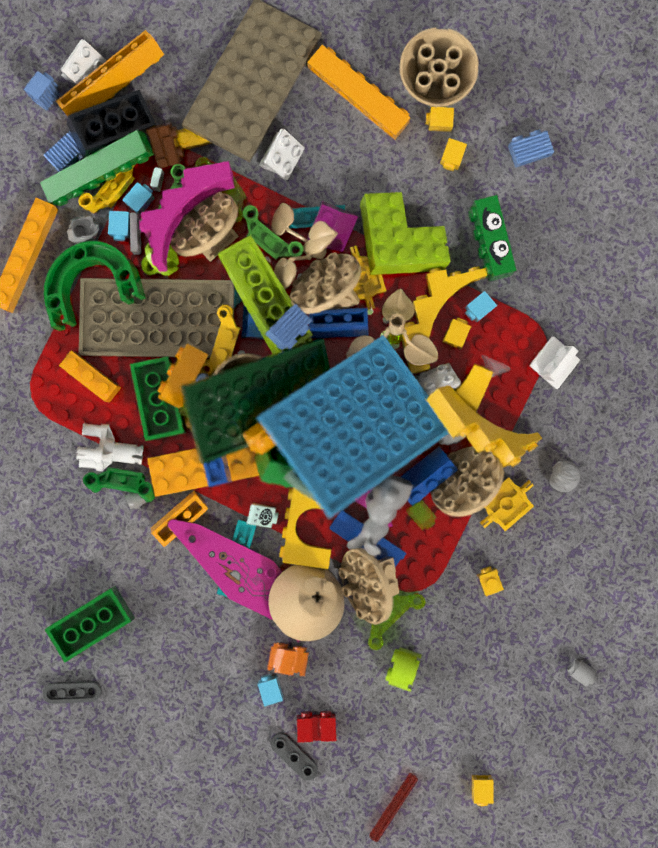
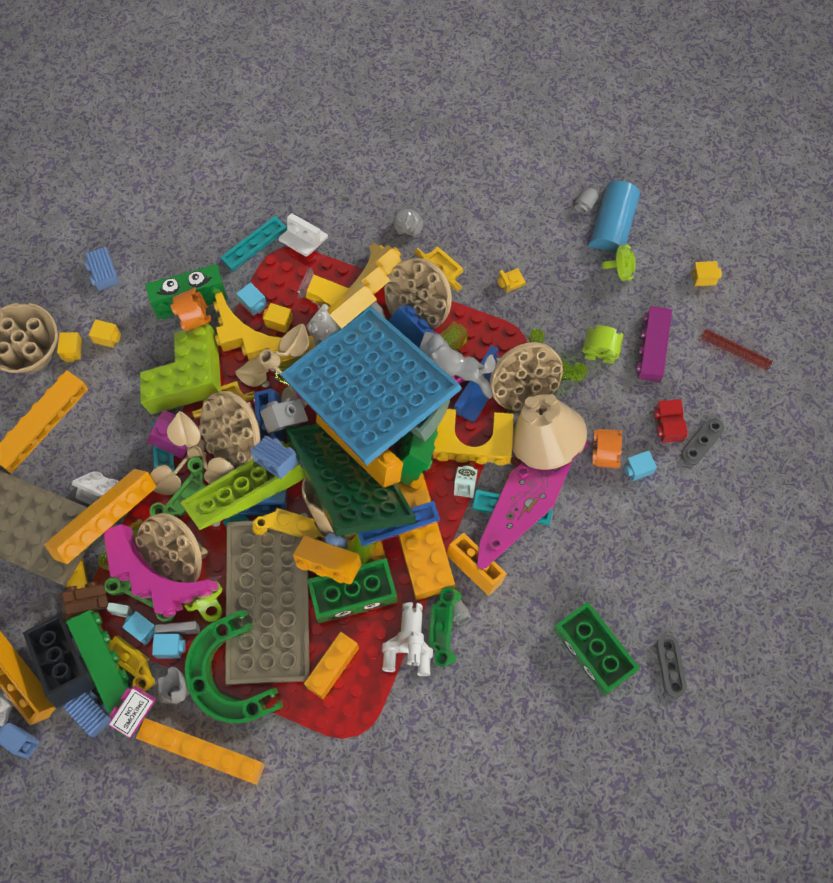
camera: 90 degrees left, 20 degrees down
(55, 193) = (132, 711): none -> brick
(243, 158) = (100, 516): none -> light orange brick
(336, 337) = (283, 415): none -> light grey brick
(403, 723) = (655, 344): none -> magenta brick
(462, 243) = (190, 309): none -> orange brick
(498, 700) = (624, 263): none -> lime tile
(552, 309) = (253, 243): none -> teal plate
(559, 700) = (615, 216): none -> dark azure brick

